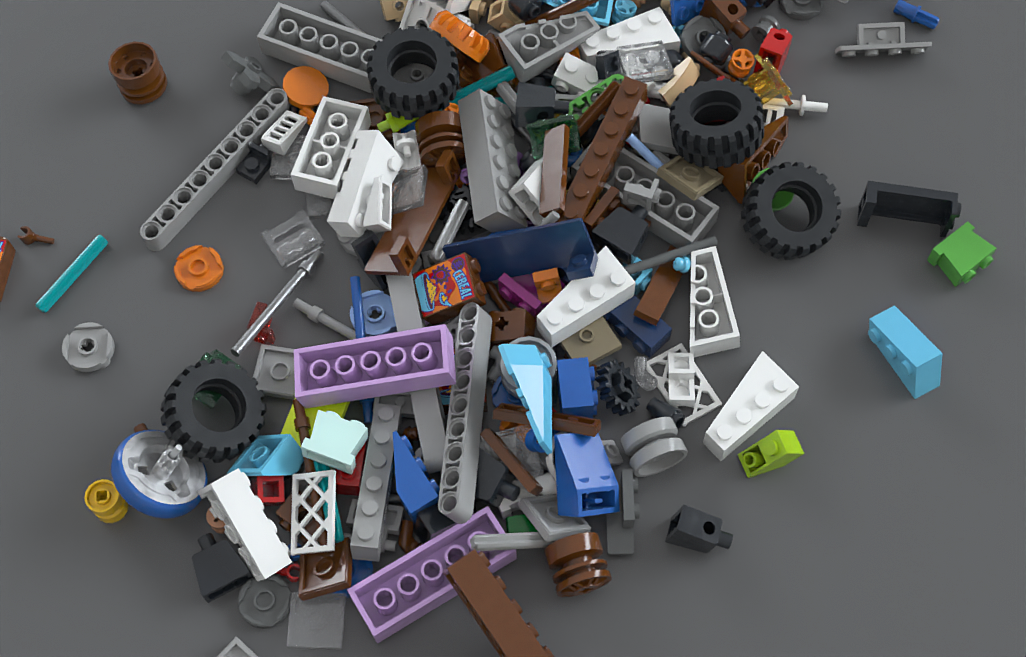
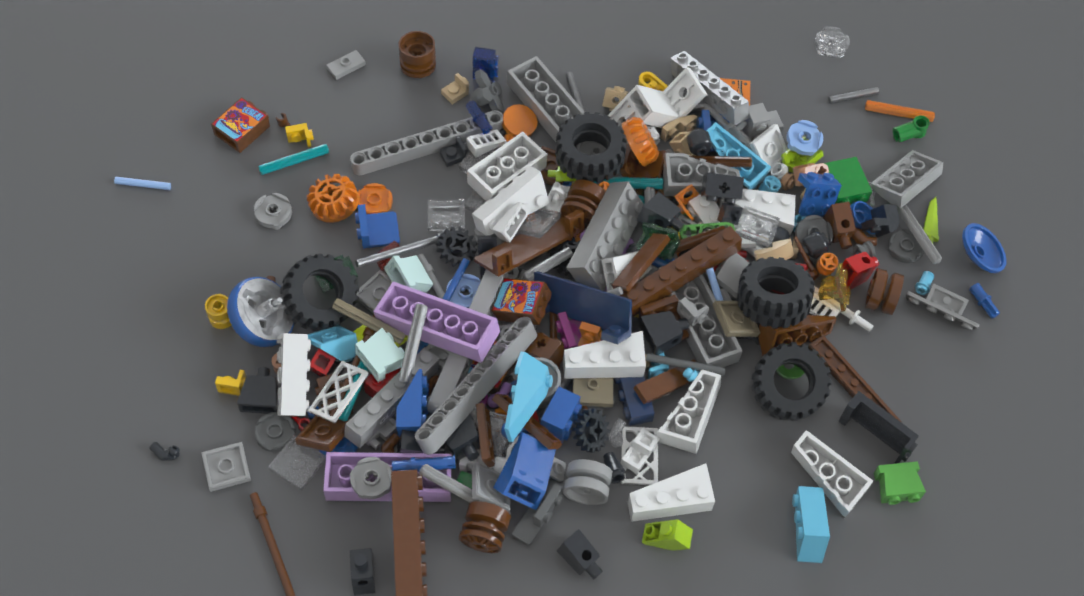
camera: 25 degrees right, 5 degrees down
(58, 239) = (298, 133): none -> yellow bracket
(59, 130) = (346, 64): none -> light grey plate
(154, 297) = (333, 202): none -> orange gear
(176, 579) = (230, 385): none -> yellow bracket
(208, 89) = (456, 89): none -> tan bracket
(224, 38) = (487, 61): none -> clear blue brick
(225, 298) = (376, 228): none -> blue bracket
(260, 106) = (478, 117): none -> clear blue axle
(291, 411) = (366, 319): none -> dark tan axle
(299, 330) = (408, 272): none -> light aqua hips
(322, 260) = (456, 239): none -> black gear
(367, 407) = (413, 343): none -> light grey axle
(420, 604) = (367, 489): none -> light grey plate
(460, 542) = (415, 464): none -> blue pin
(493, 400) = (505, 389): none -> medium lavender arm
(547, 78) = (683, 201): none -> orange bracket
(571, 43) = (732, 184): none -> black brick
(752, 17) = (859, 237): none -> reddish brown arm
(817, 60) = (886, 291): none -> reddish brown wheel
(838, 173) = (845, 373): none -> reddish brown tile
(847, 31) = (923, 286): none -> medium azure pin
(890, 283) = (830, 471): none -> white wedge

